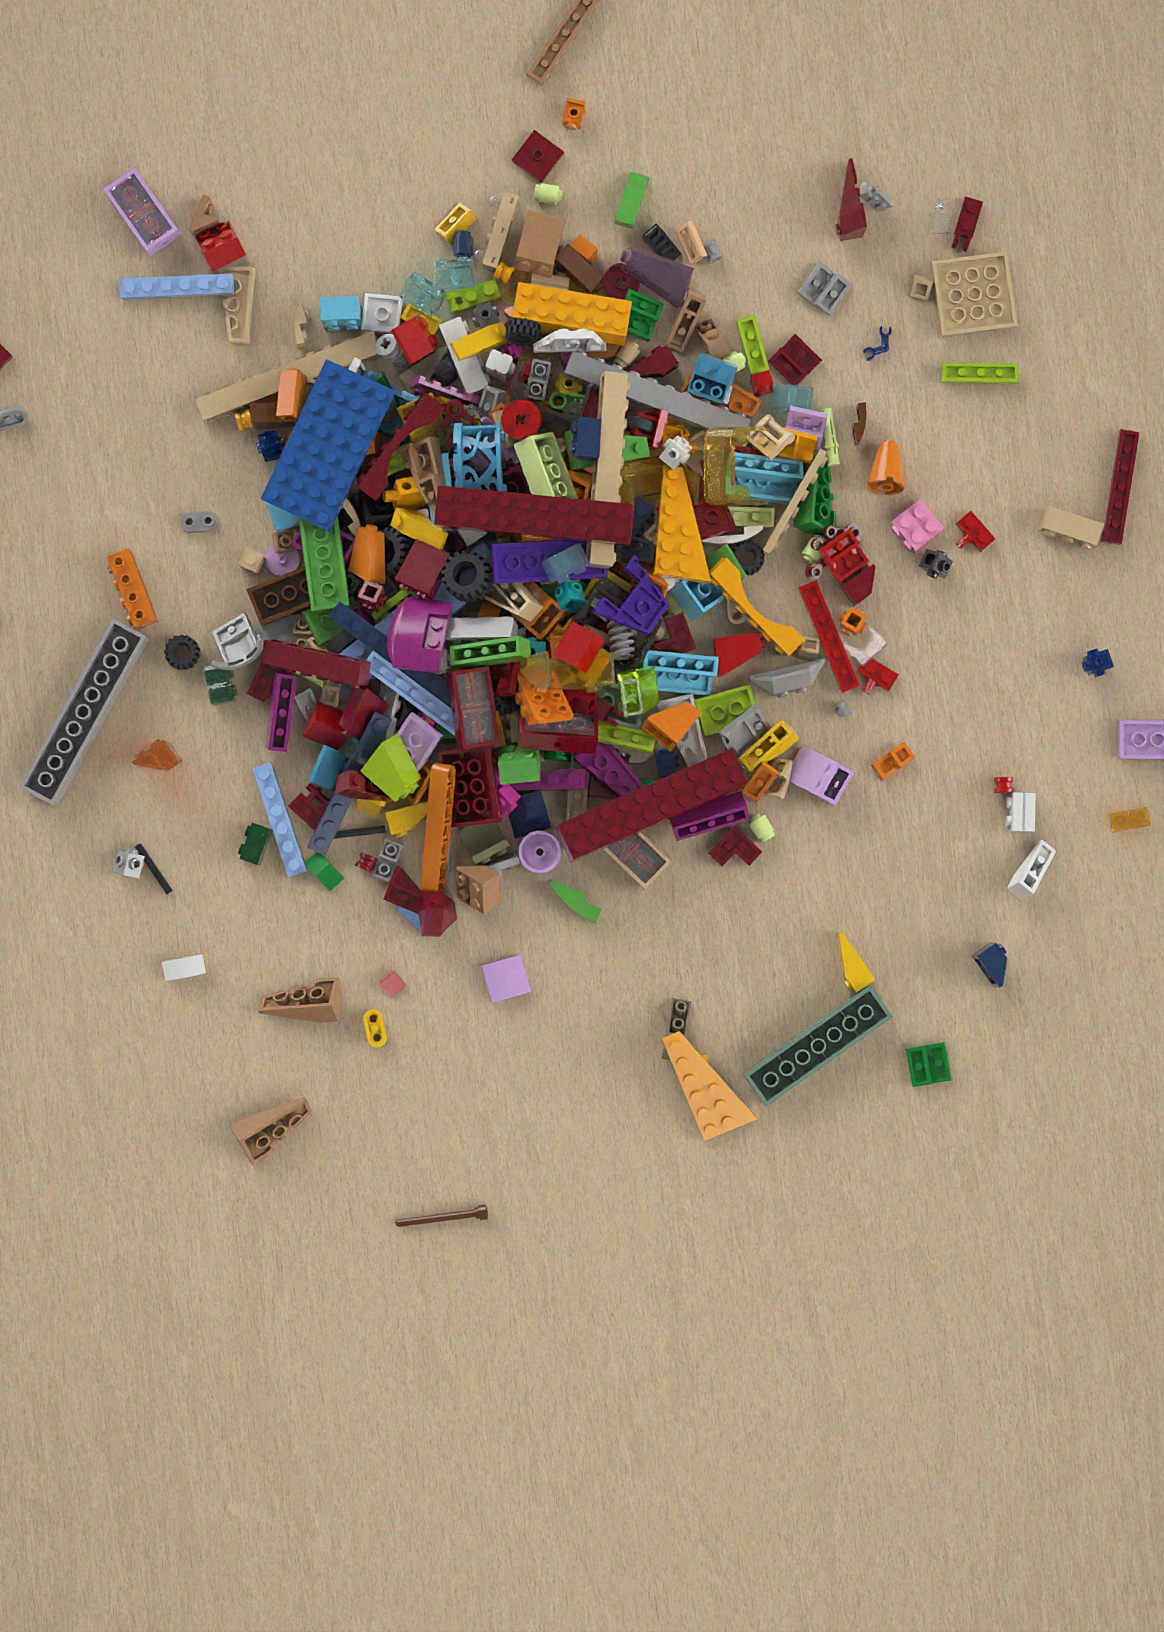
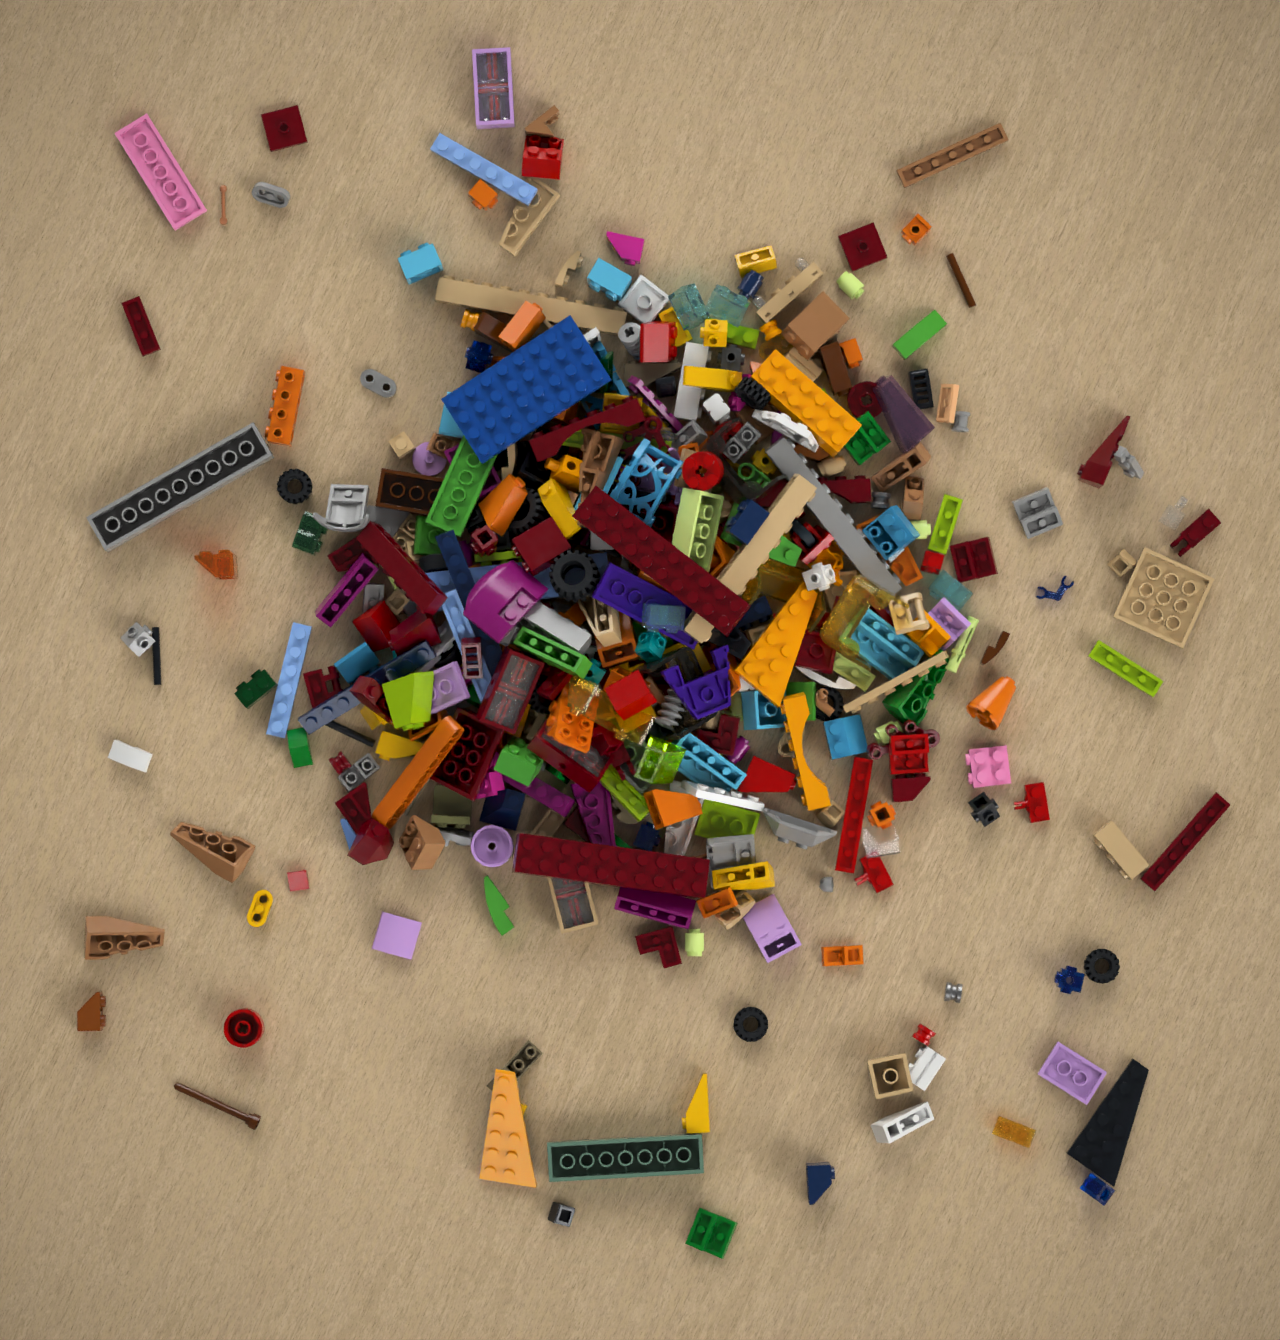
camera: 35 degrees right, 0 degrees up
(171, 397) = (420, 263): none -> medium azure brick
(190, 308) = (483, 196): none -> orange brick
(287, 1209) = (90, 1015): none -> dark orange slope
(338, 277) = (627, 247): none -> dark pink slope
(413, 688) = (472, 645): none -> slope
(413, 1139) = (254, 1031): none -> red brick
(458, 302) = (714, 333): none -> yellow brick
(637, 133) = (961, 281): none -> reddish brown bar
(686, 358) = (880, 500): none -> flat silver wheel
(700, 641) = (740, 750): none -> magenta brick
(708, 688) = (723, 796): none -> white wing
(742, 556) = (821, 700): none -> medium nougat arm
(780, 575) = (845, 736): none -> dark azure slope
(792, 1127) = (561, 1214): none -> black slope
(852, 855) = (762, 1024): none -> black tyre
(997, 836) = (890, 1075): none -> tan slope
(1005, 734) = (953, 992): none -> flat silver wheel
(1127, 631) = (1113, 966): none -> black tyre

